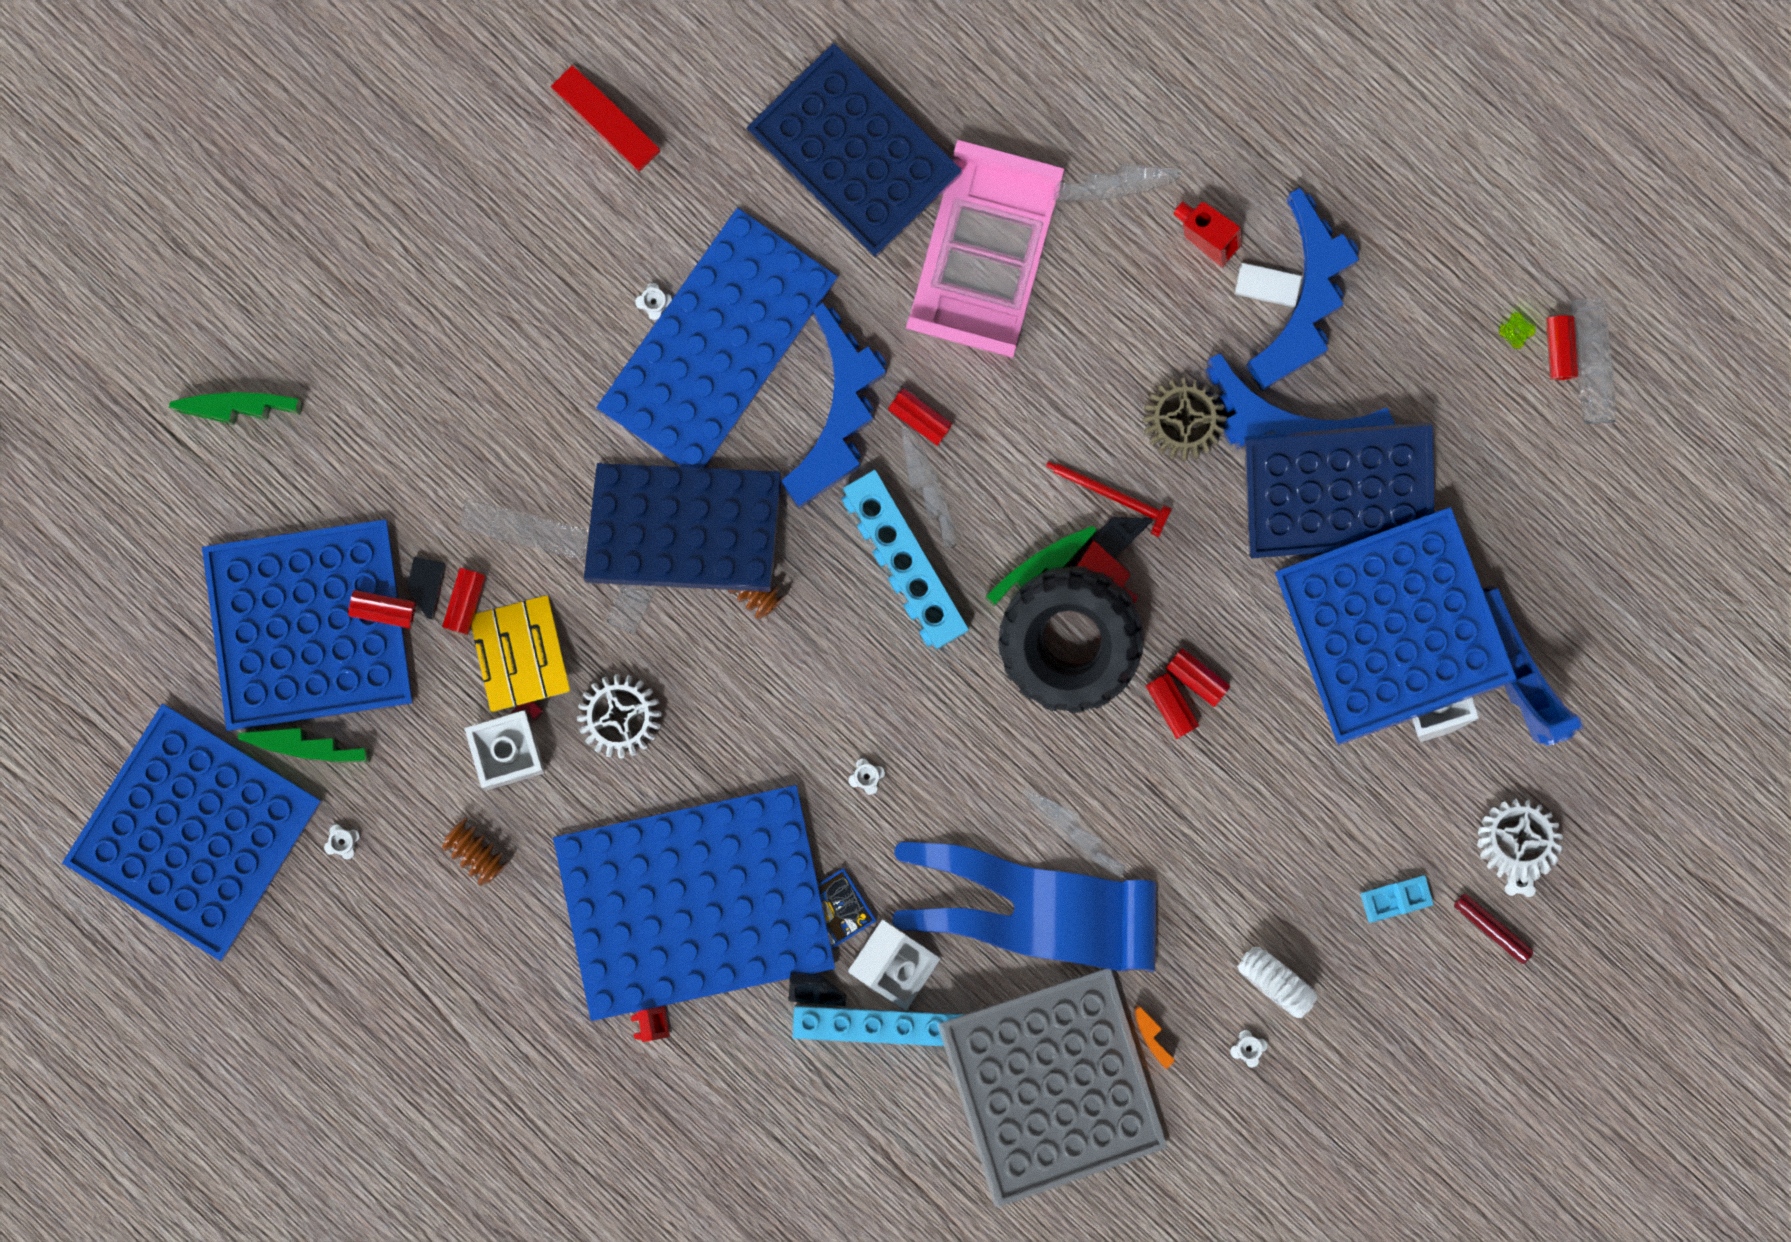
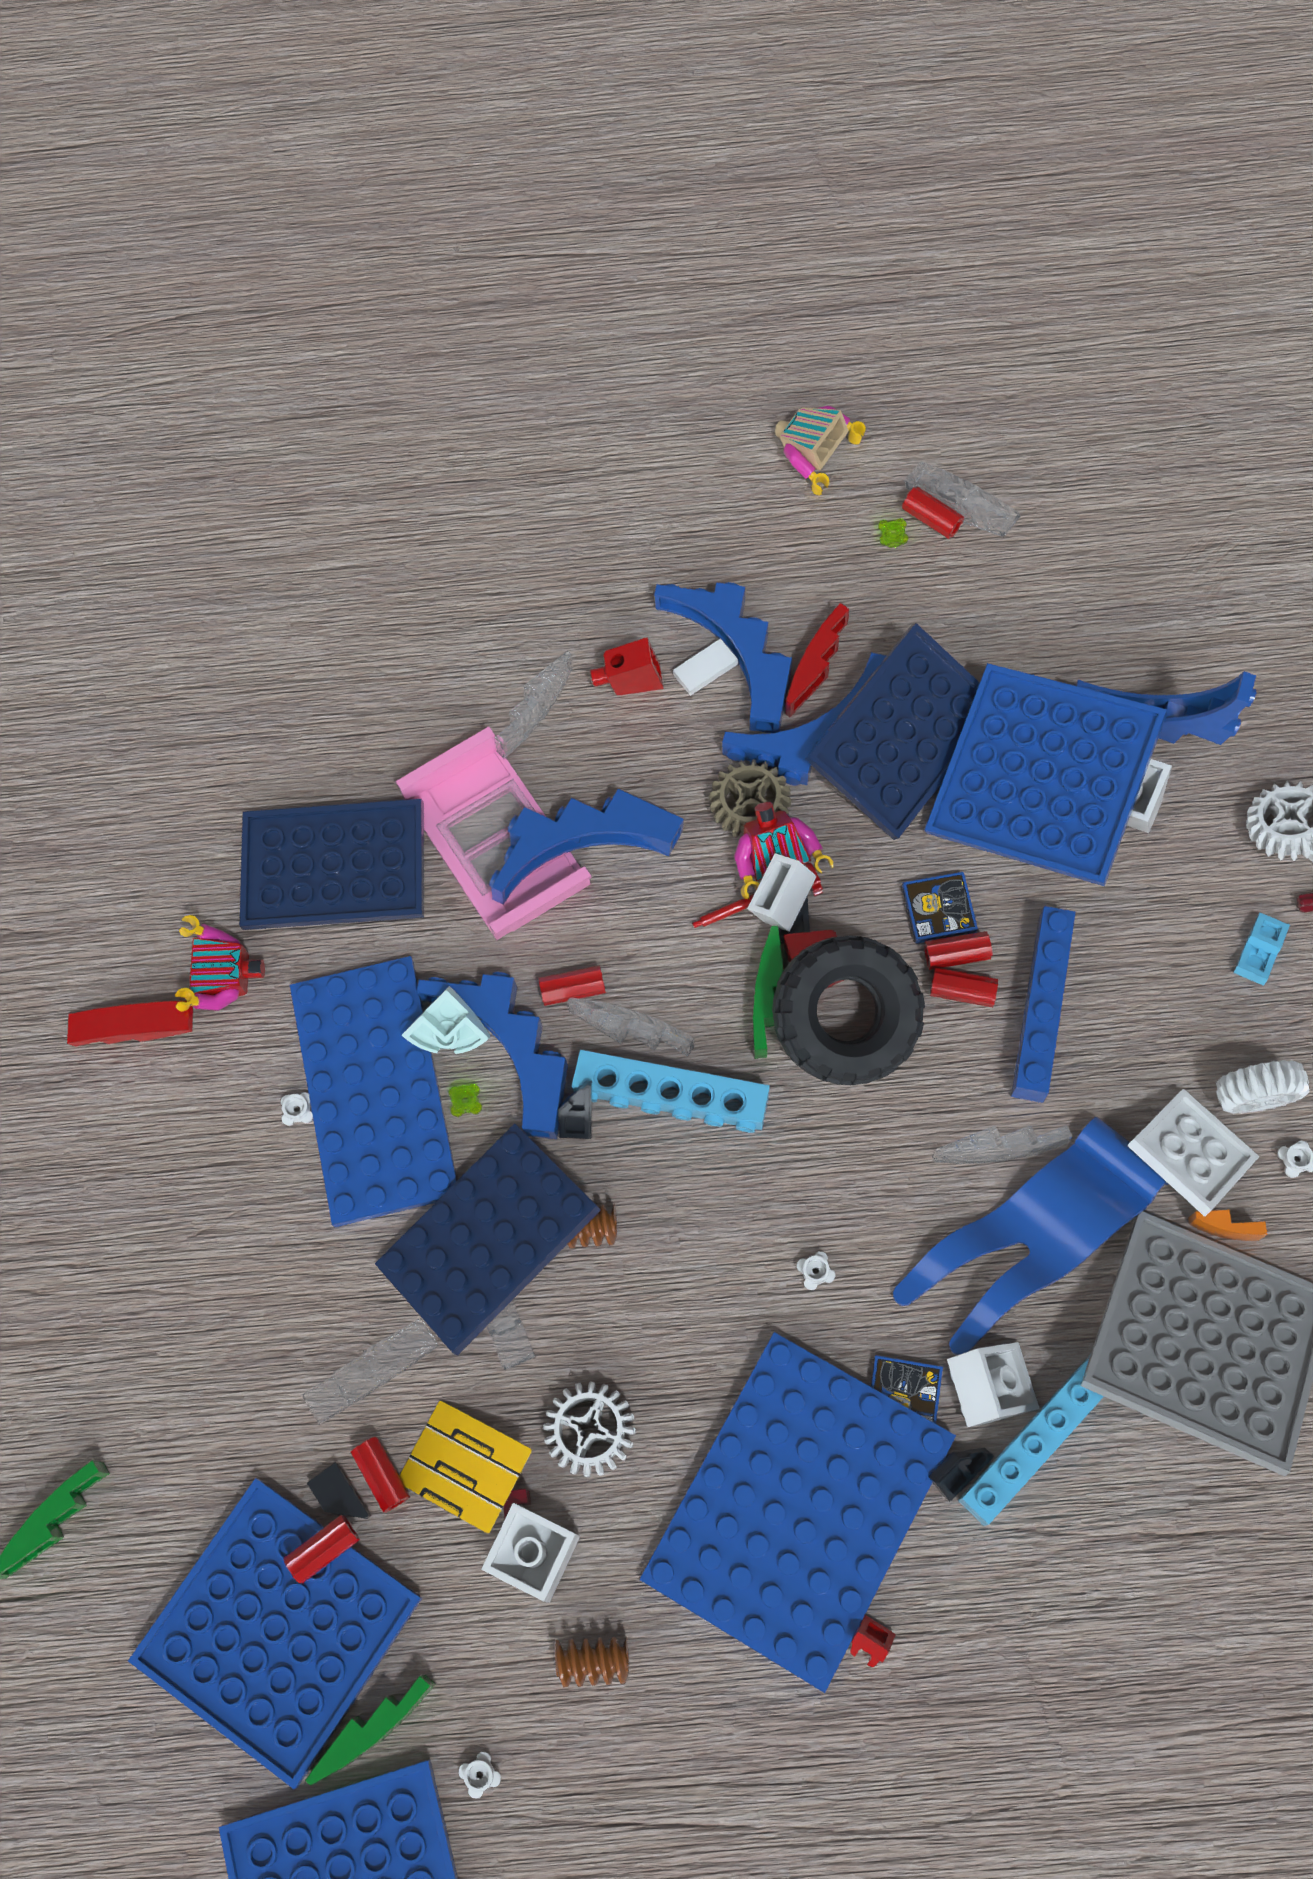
camera: 35 degrees left, 15 degrees down
(700, 143) = (217, 968): none -> torso
(767, 408) = (457, 1094): none -> clear neon green plate
(808, 356) = (447, 1025): none -> light aqua brick
(827, 509) = (576, 1114): none -> black tile
(1009, 291) = (577, 826): none -> blue arch
(1124, 511) = (782, 892): none -> white piece
(1158, 471) = (774, 834): none -> torso
(1185, 971) = (1193, 1152): none -> white plate
(1209, 774) = (1043, 1005): none -> blue brick
(1222, 635) = (939, 907): none -> tile
(1336, 371) = (814, 664): none -> red slope
(1546, 194) = (813, 438): none -> torso

